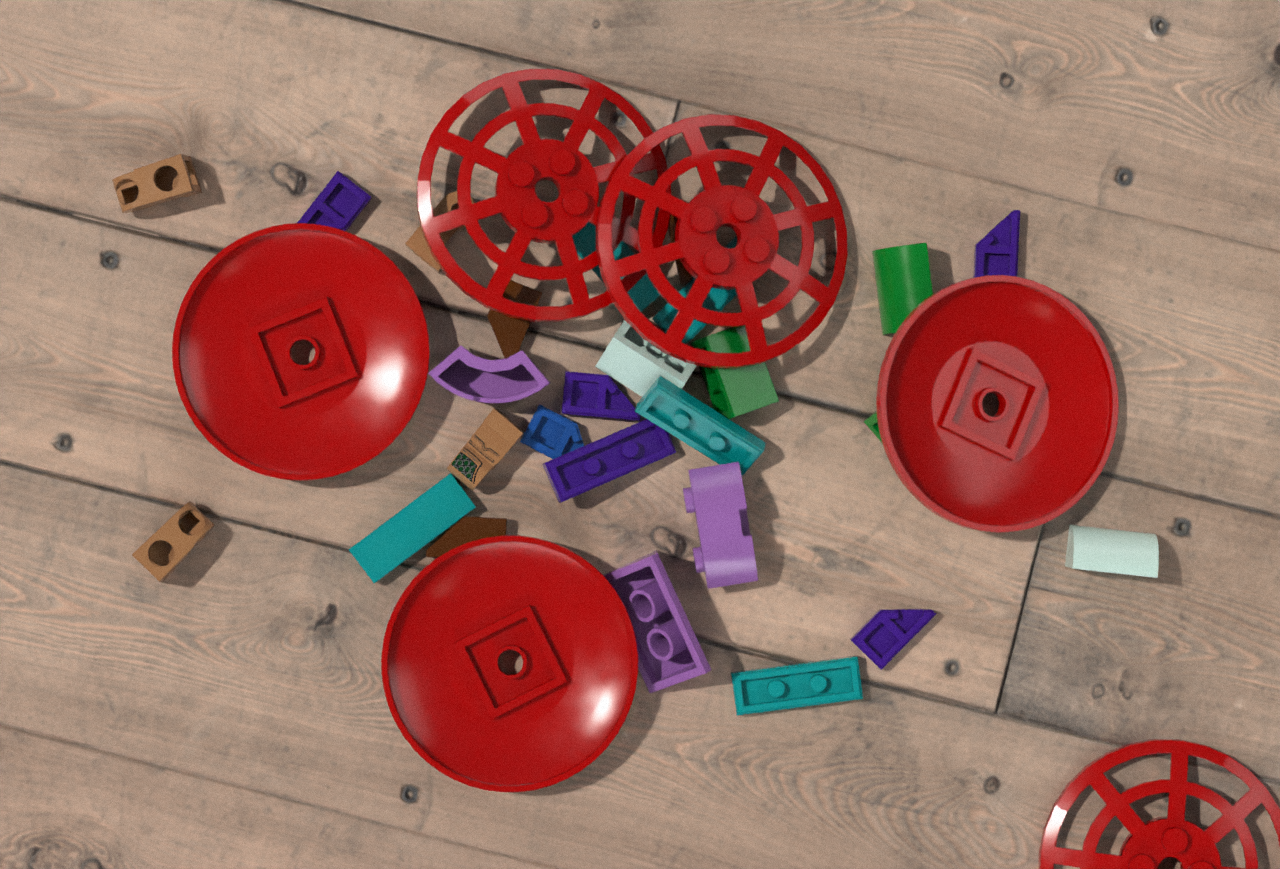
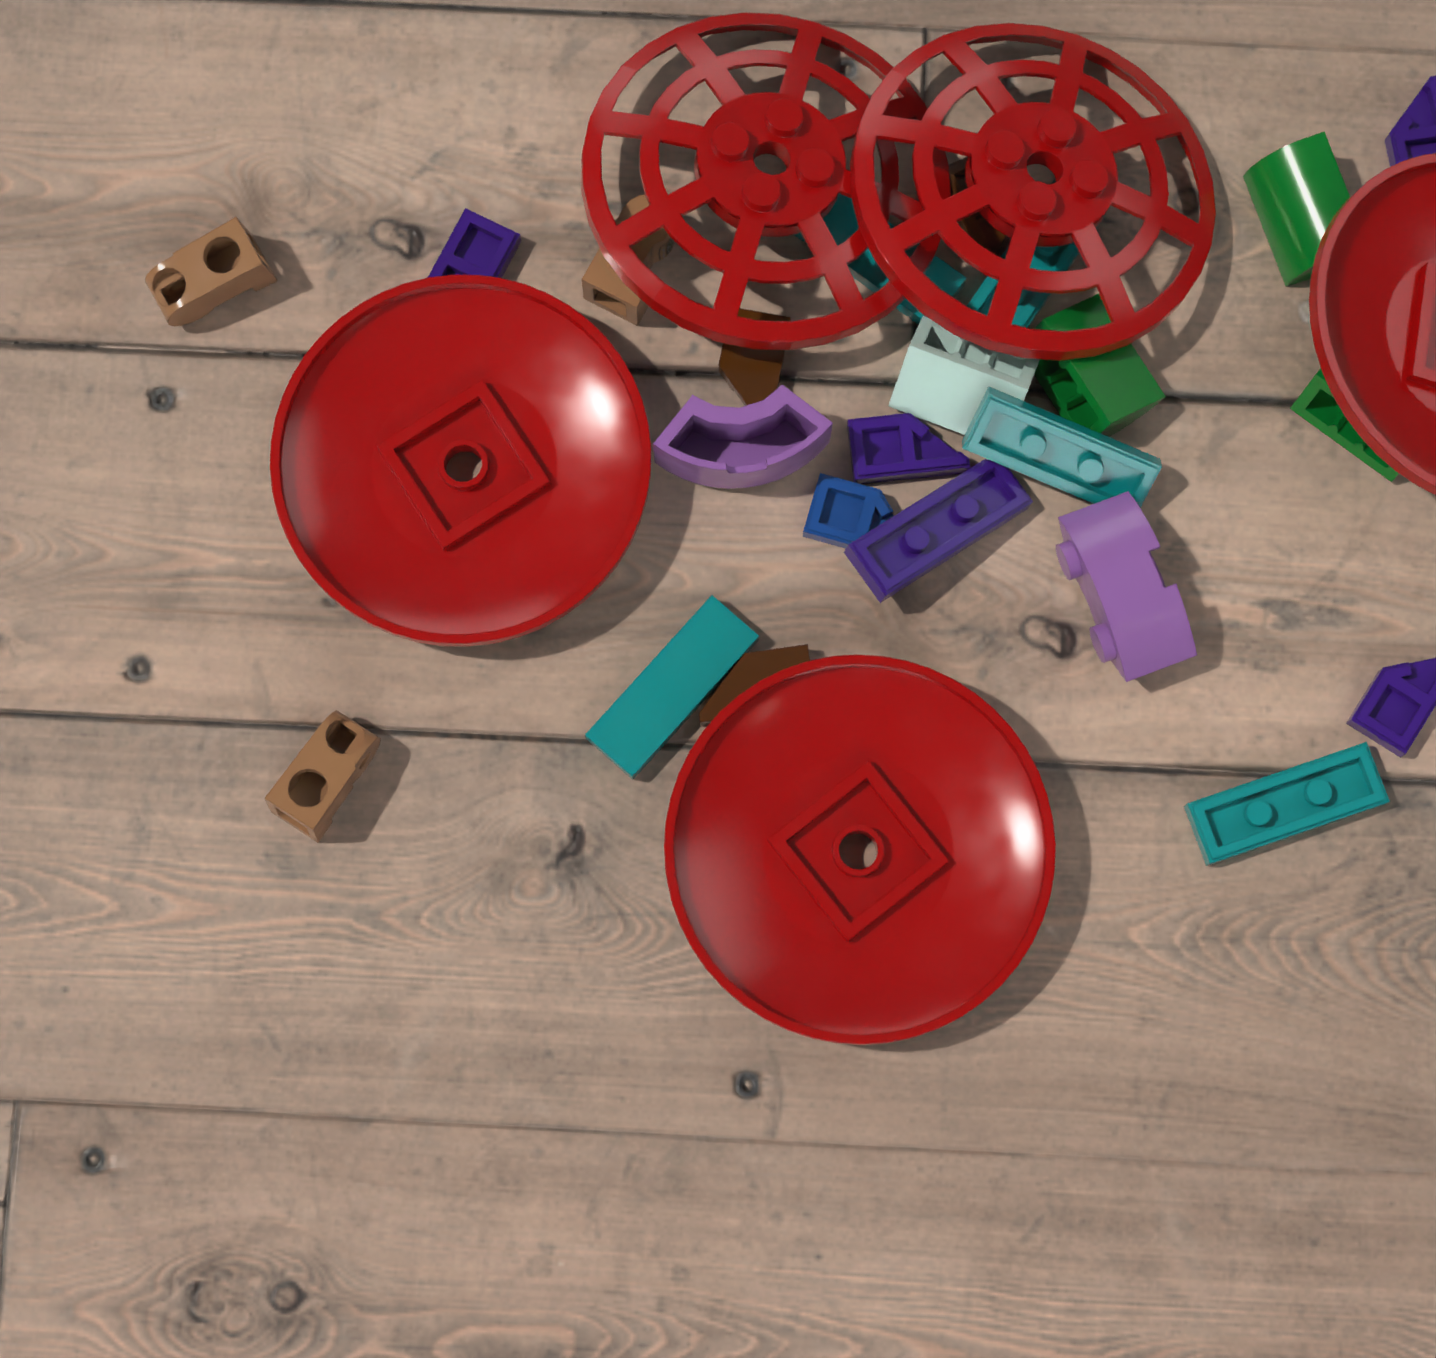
camera: 10 degrees left, 10 degrees down
(485, 449) = (757, 548): medium nougat leg -> none
(662, 631) = (1081, 755): medium lavender slope -> none

